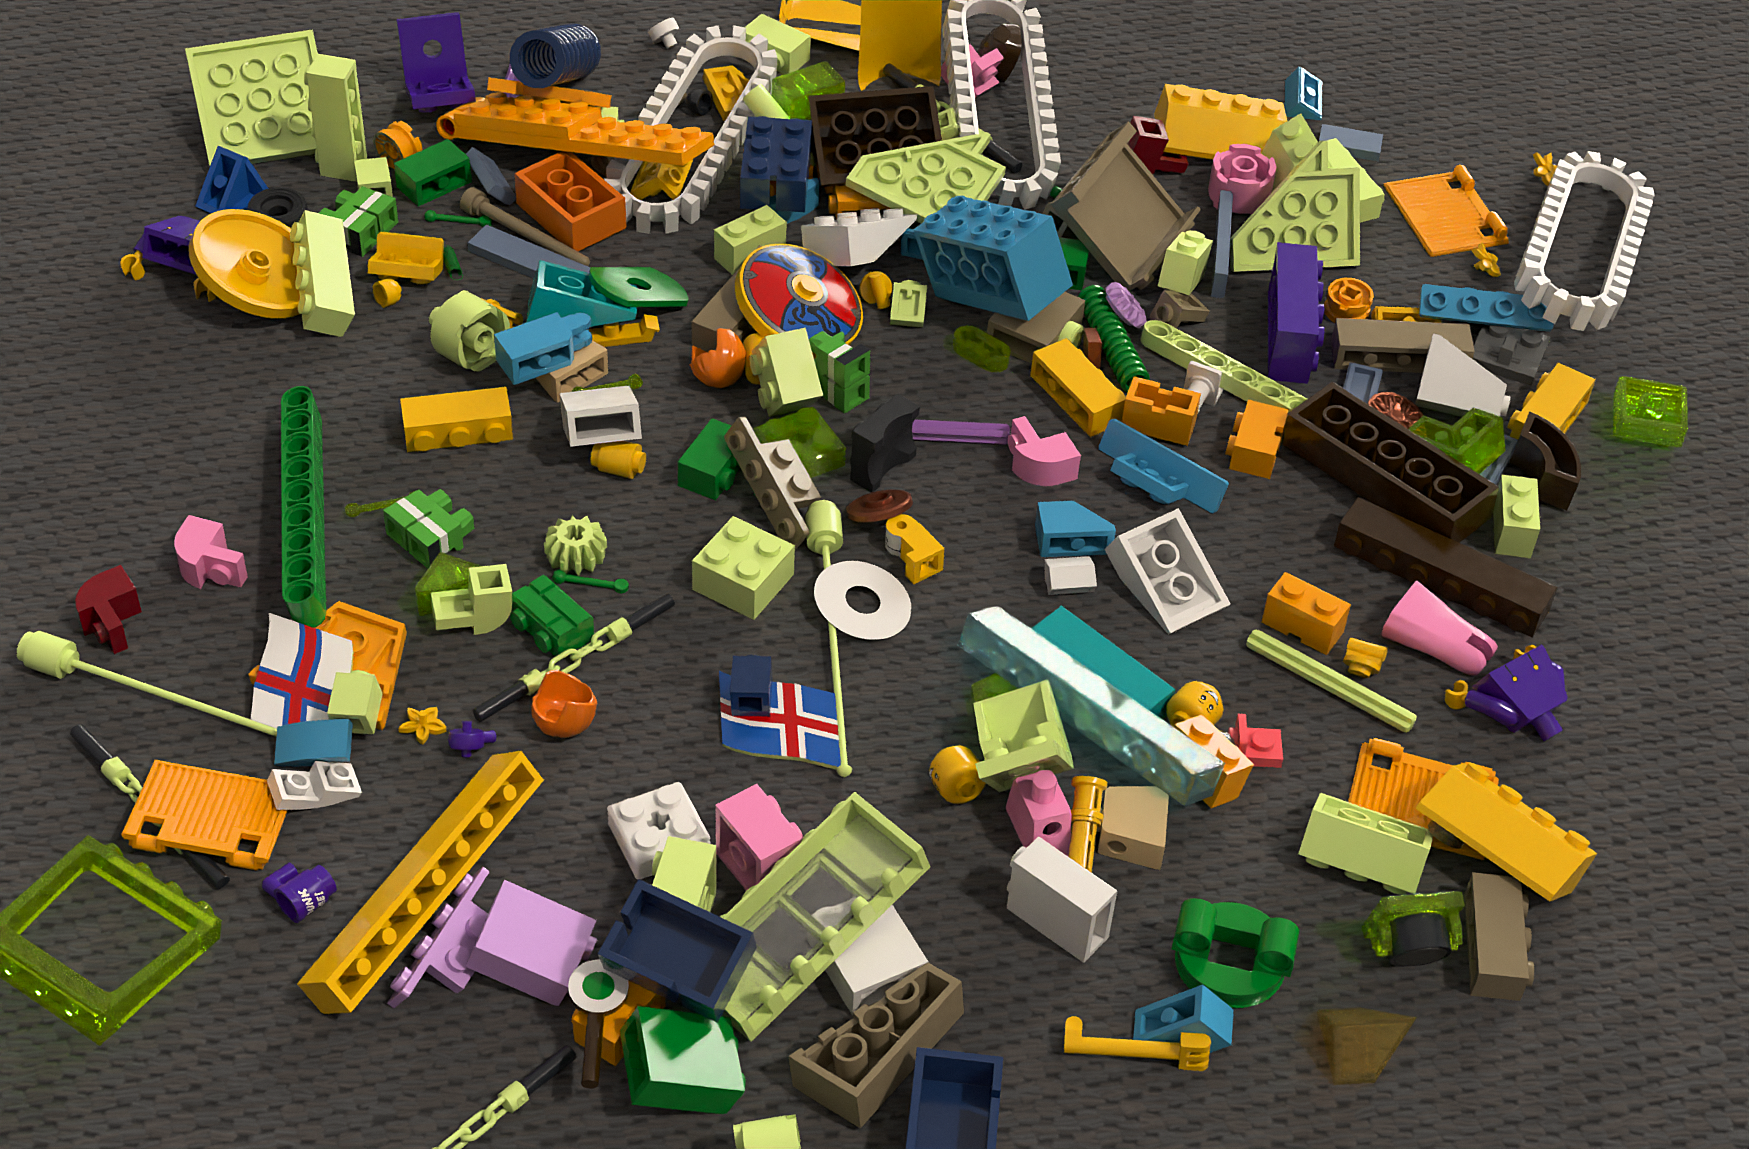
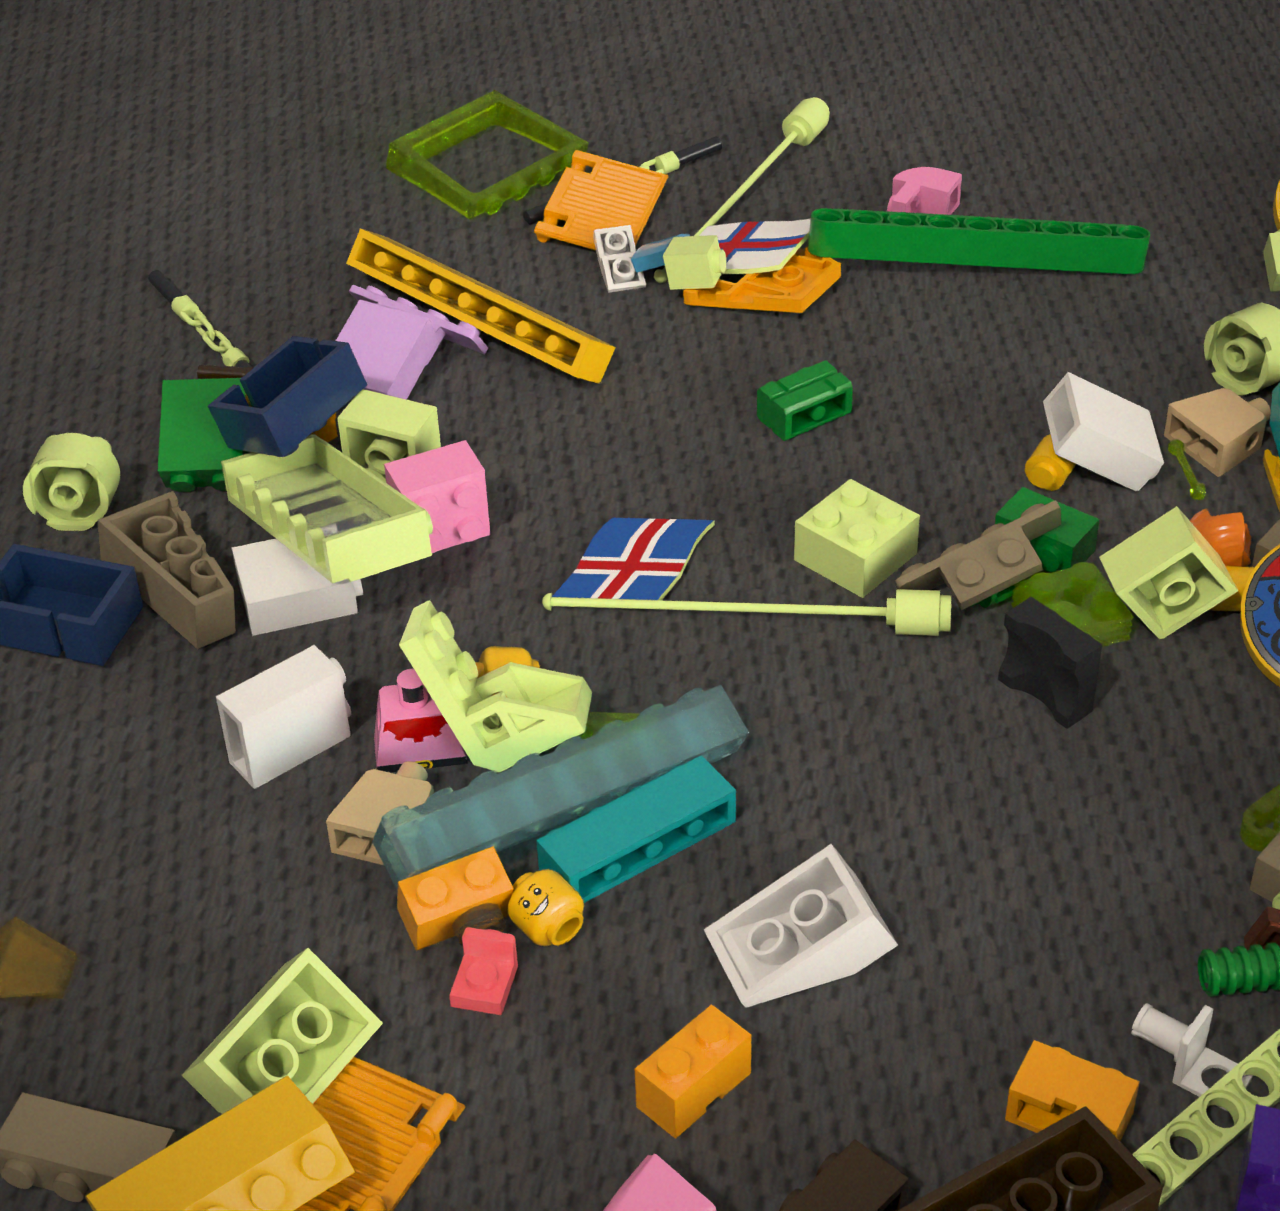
camera: 105 degrees right, 5 degrees down
(106, 602) = (860, 143): dark red brick -> none
(301, 892) = (497, 250): dark purple piece -> none
(354, 509) = (1003, 326): clear neon green hinge -> none
(423, 723) = (686, 326): yellow plant -> none
(425, 526) = (948, 324): bright green hips -> none
(444, 574) = (863, 335): clear neon green slope -> none
(456, 419) = (1116, 347): yellow brick -> none
(469, 738) = (652, 345): dark purple piece -> none
(482, 605) = (826, 339): yellowish green brick -> none
(541, 345) = (1206, 379): dark azure hinge -> none
(563, 705) = (668, 393): orange hair -> none
(575, 545) = (911, 421): yellowish green gear -> none
(615, 632) = (782, 449): piece -> none
(620, 585) = (858, 461): green hinge -> none
(638, 822) = (508, 452): white brick -> none
(751, 685) = (669, 523): dark blue brick -> none
(841, 370) = (1195, 639): bright green hips -> none
(879, 505) = (954, 665): copper wheel -> none
(894, 600) = (832, 662): white sticker -> none
(914, 546) = (879, 689): yellow leg -> none
(960, 432) = (1103, 769): medium lavender axle -> none
(1042, 460) = (1042, 831): bright pink brick -> none
(1070, 575) = (811, 827): white piece -> none
(1071, 530) = (896, 839): dark azure slope -> none
(1077, 386) = (1188, 900): yellow brick -> none
(1085, 818) = (385, 751): yellow pin -> none
(1159, 469) = (998, 953): dark azure bracket -> none
(1160, 411) = (1121, 974): light orange brick -> none
(1189, 1012) = (92, 815): dark azure slope -> none
(1191, 1051) = (63, 800): yellow hinge -> none
(1240, 925) = (190, 835): green piece -> none
(1331, 681) = (575, 1090): yellowish green axle -> none
(1364, 657) = (600, 1126): yellow plate -> none
(1423, 931) = (112, 1042): piece -> none

